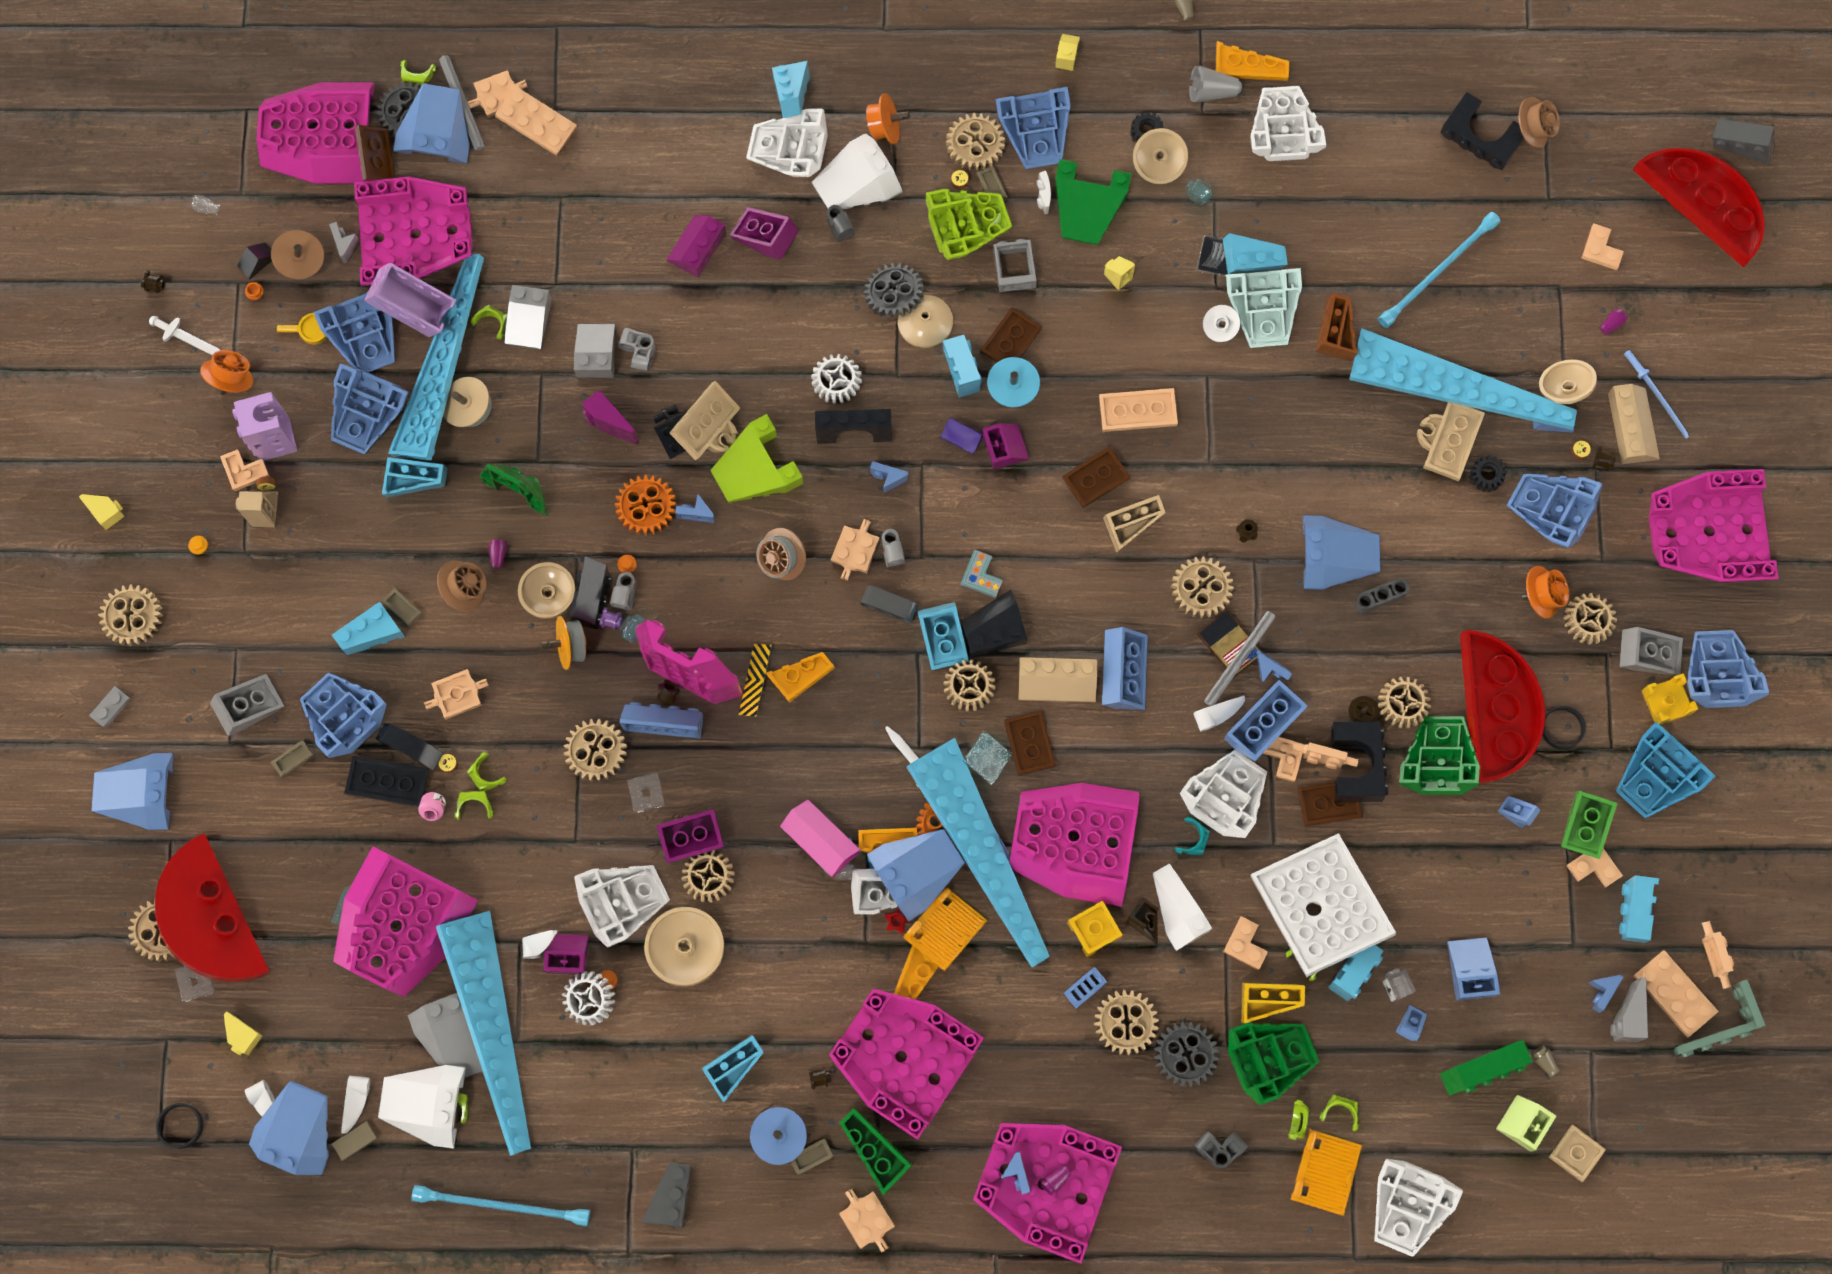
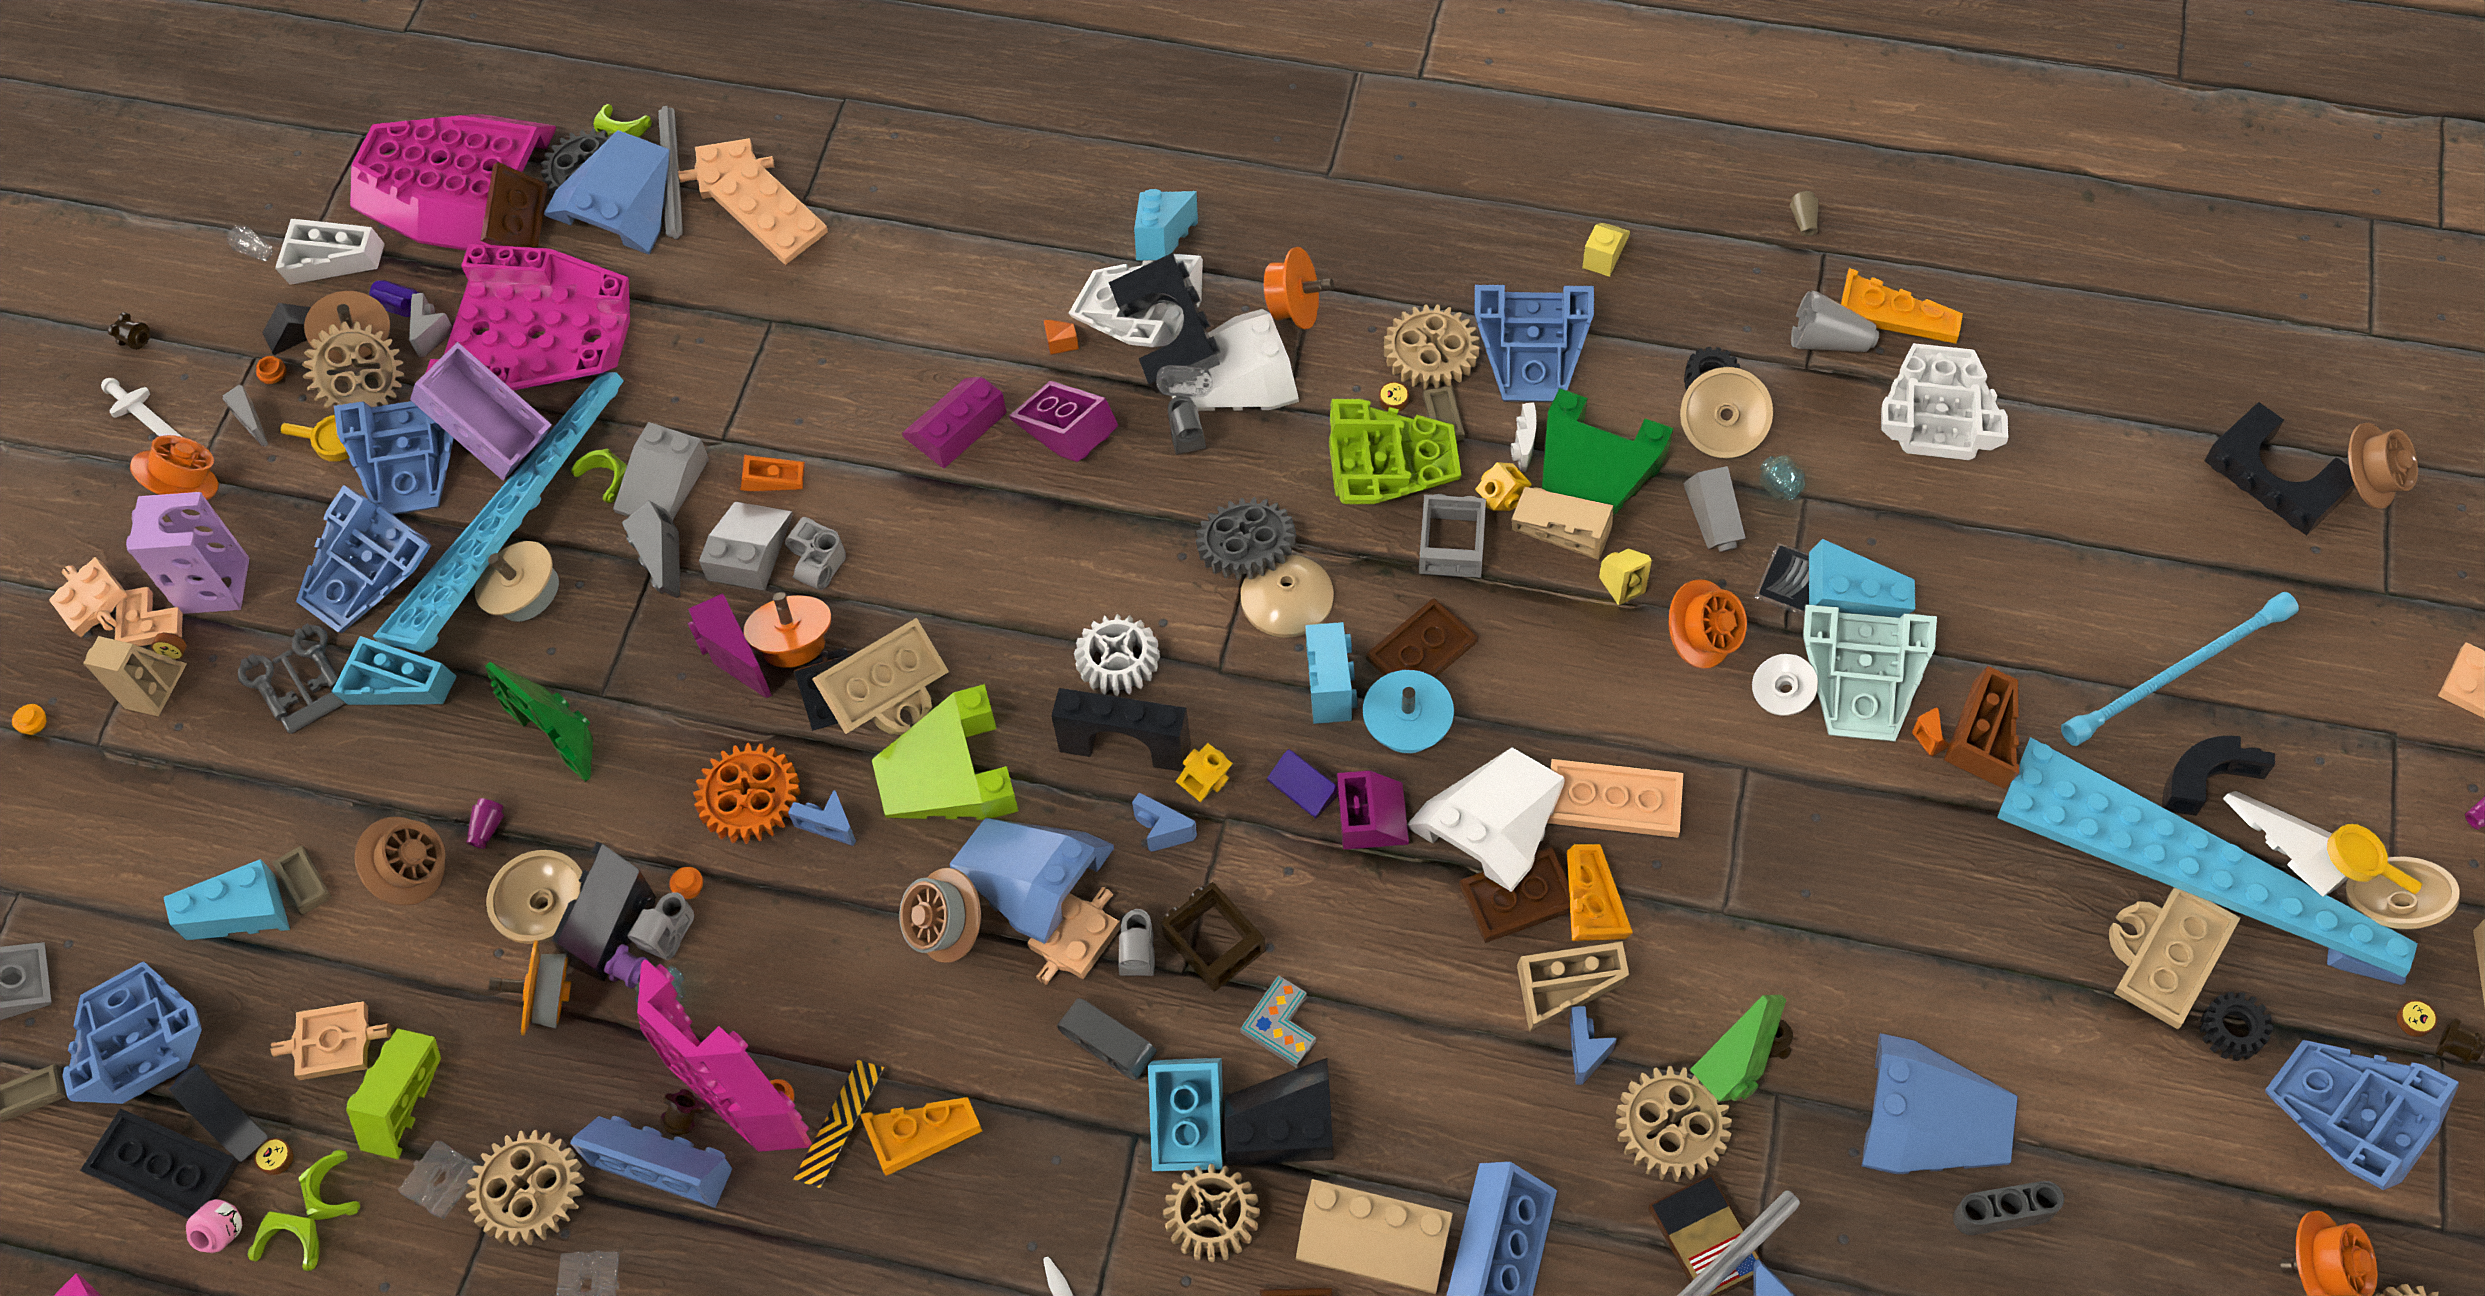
camera: 15 degrees right, 15 degrees down
(203, 463) = (88, 597): none -> light nougat plate
(247, 321) = (244, 410): none -> light grey slope
(260, 202) = (327, 250): none -> white wedge
(306, 267) = (347, 344): none -> tan gear
(314, 225) = (393, 297): none -> dark purple piece
(368, 505) = (328, 676): none -> dark grey piece
(503, 714) = (390, 1091): none -> lime wedge
(541, 360) = (657, 542): none -> slope
(547, 766) = (444, 1196): none -> clear piece
(594, 302) = (771, 474): none -> orange slope
(641, 401) = (789, 629): none -> piece
(746, 175) = (1060, 336): none -> orange slope
(820, 517) = (1028, 870): none -> medium blue wedge
(833, 173) = (1166, 283): none -> black arch
(833, 196) = (1184, 388): none -> clear beam
(905, 441) = (1204, 772): none -> yellow brick
(949, 545) = (1234, 959): none -> dark brown window
(1038, 229) = (1502, 486): none -> yellow brick
(1074, 433) = (1495, 814): none -> white wedge
(1077, 244) = (1564, 521): none -> tan wedge
(1137, 470) = (1594, 897): none -> light orange wing
(1149, 559) = (1586, 1051): none -> medium blue slope
(1164, 220) = (1715, 508): none -> light grey slope
(1171, 295) = (1706, 623): none -> orange piece
(1232, 546) = (1742, 1052): none -> bright green slope
(1306, 337) = (1929, 733): none -> orange slope
(1467, 318) = (2217, 755): none -> black arch
(1521, 368) = (2292, 837): none -> white wedge
(1543, 367) = (2364, 857): none -> yellow piece

